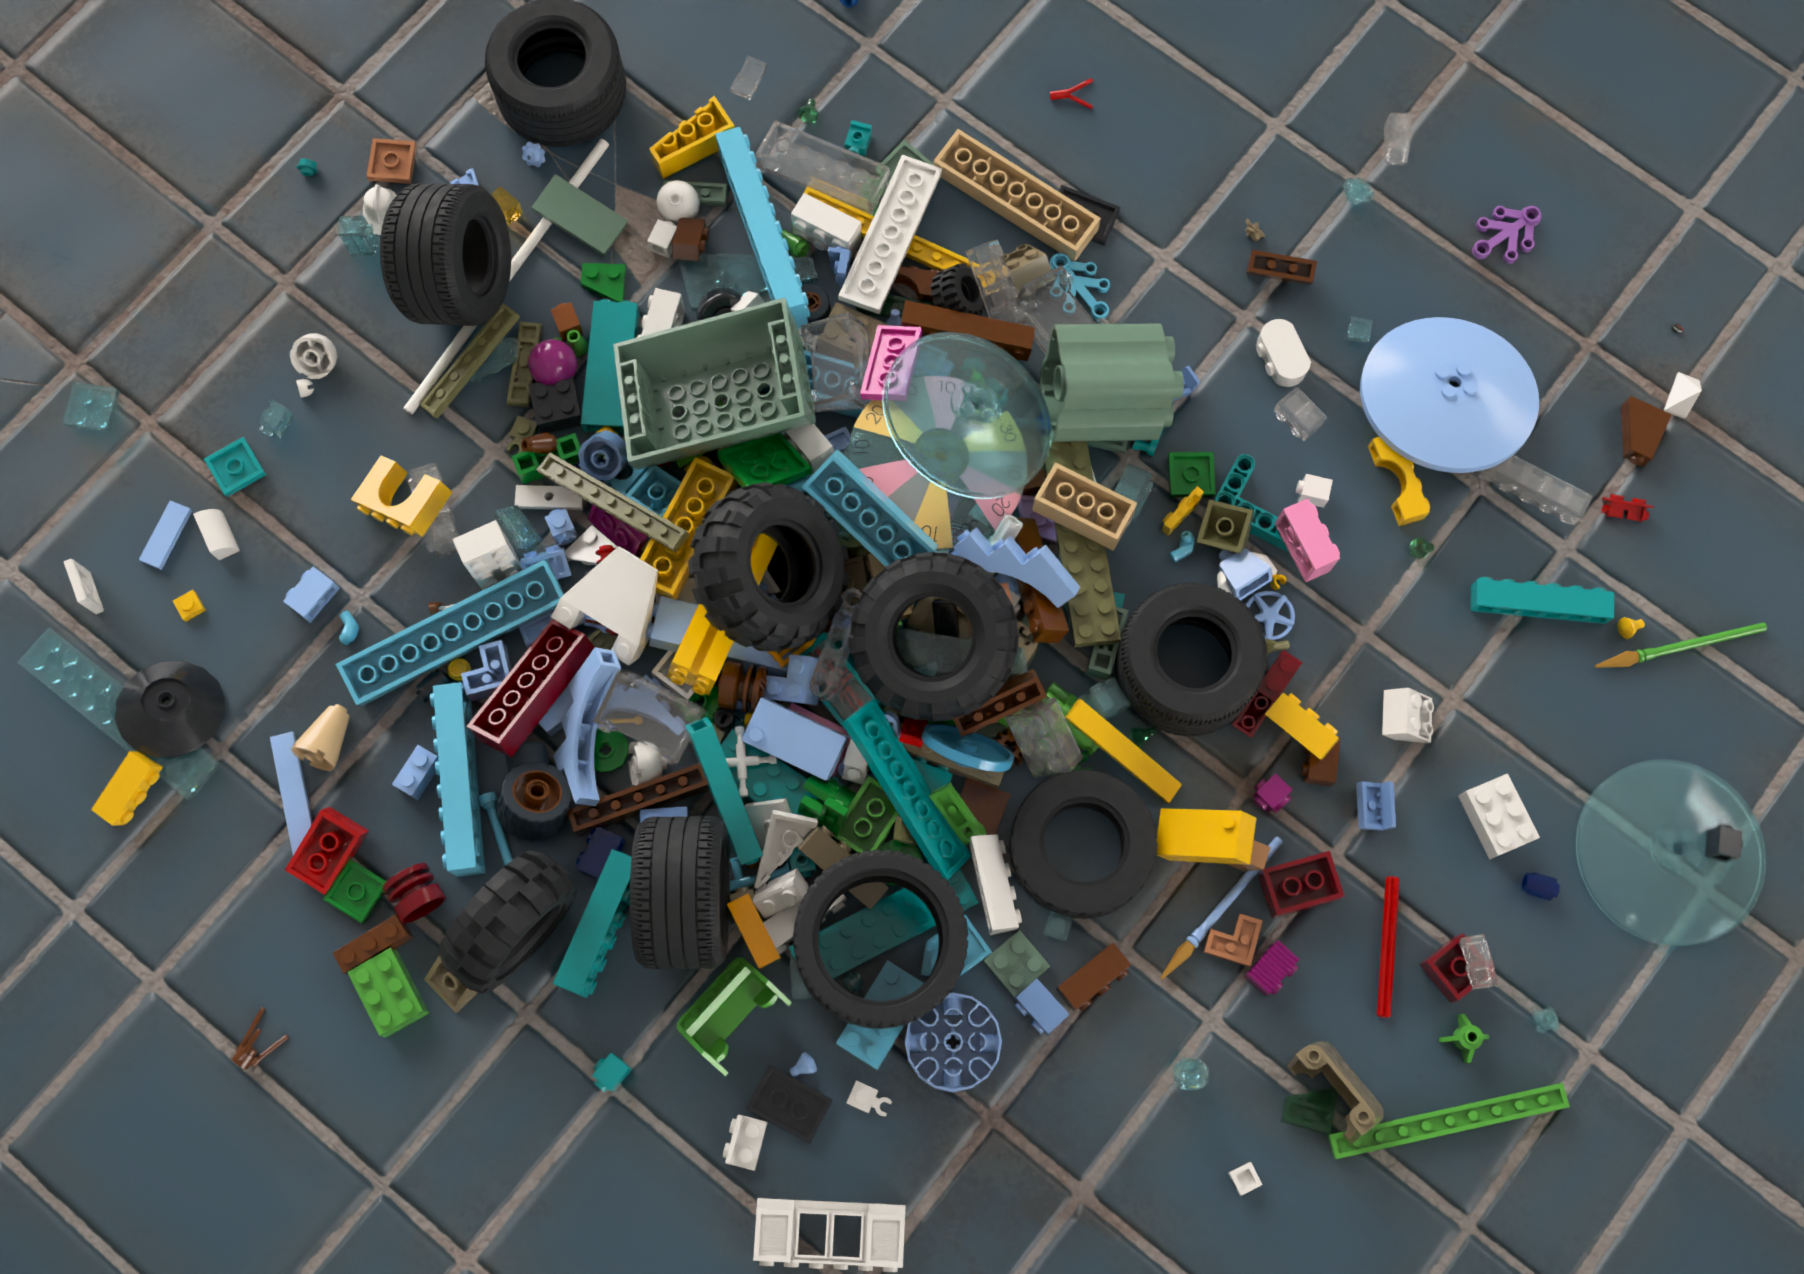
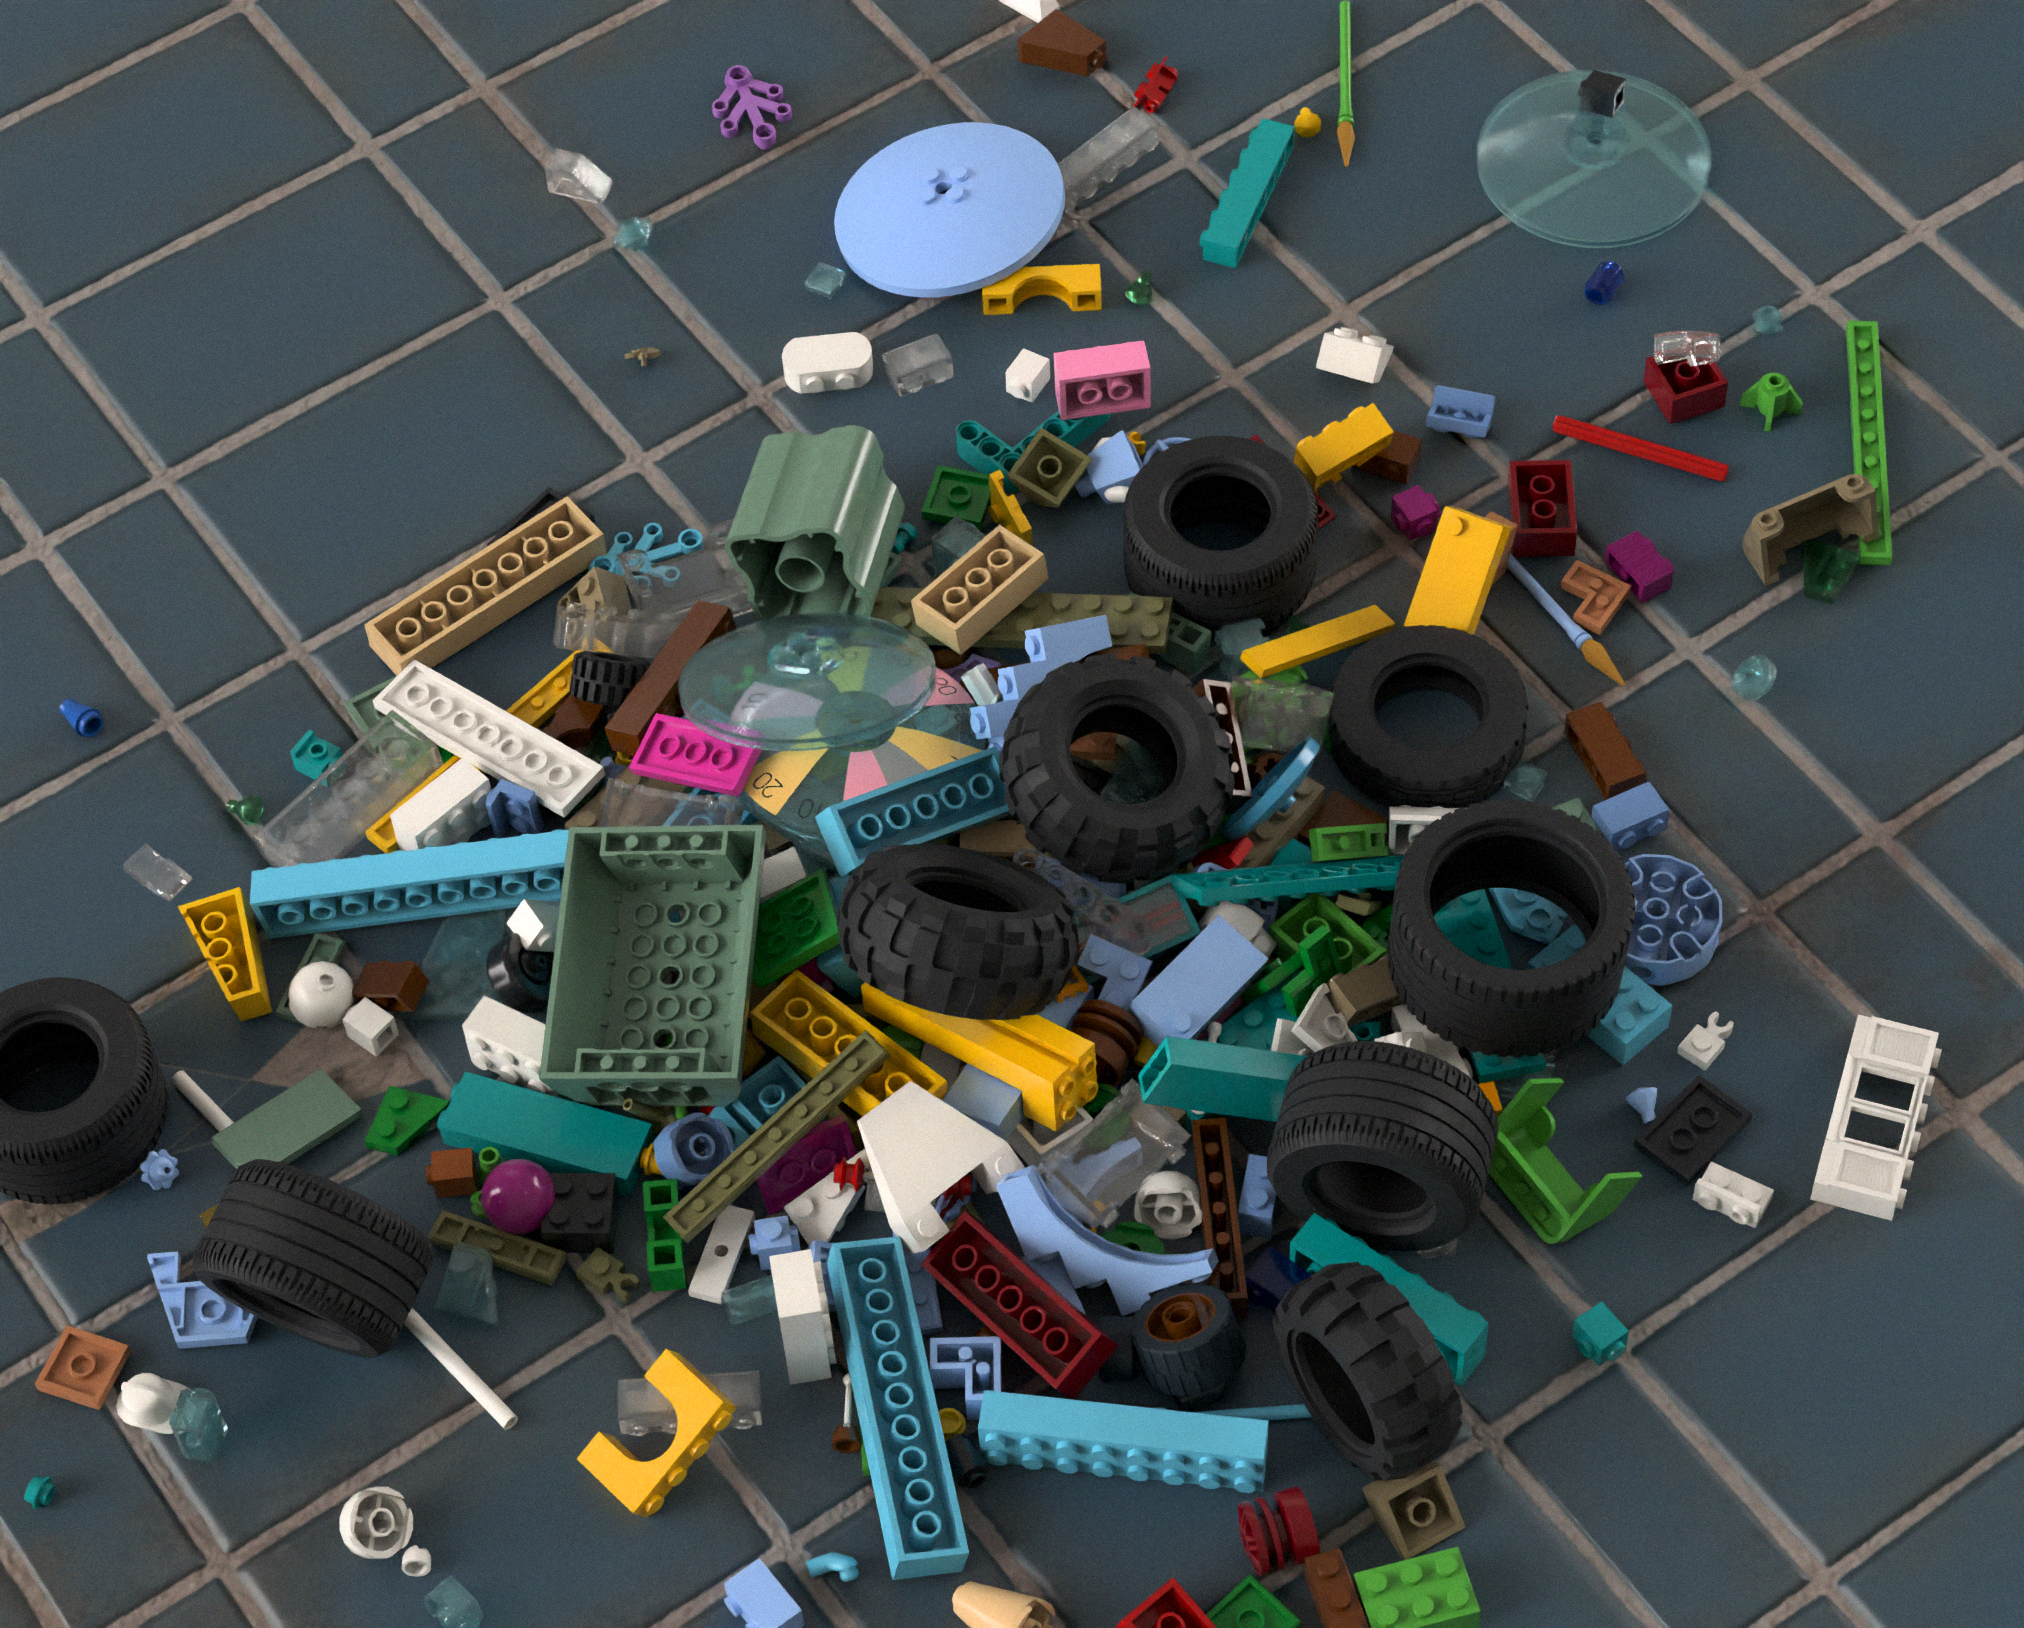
camera: 70 degrees left, 20 degrees down
(416, 773) = (1093, 1503): light blue brick -> none
(469, 361) = (476, 1321): olive tile -> none
(539, 443) = (645, 1225): reddish brown cone -> none
(1060, 94) = (352, 498): red plant -> none
(1185, 548) = (1056, 528): medium azure arm -> none
(1245, 1178) = (1896, 656): white plate -> none
(1281, 267) = (710, 332): reddish brown brick -> none
(1498, 816) = (1508, 299): white brick -> none

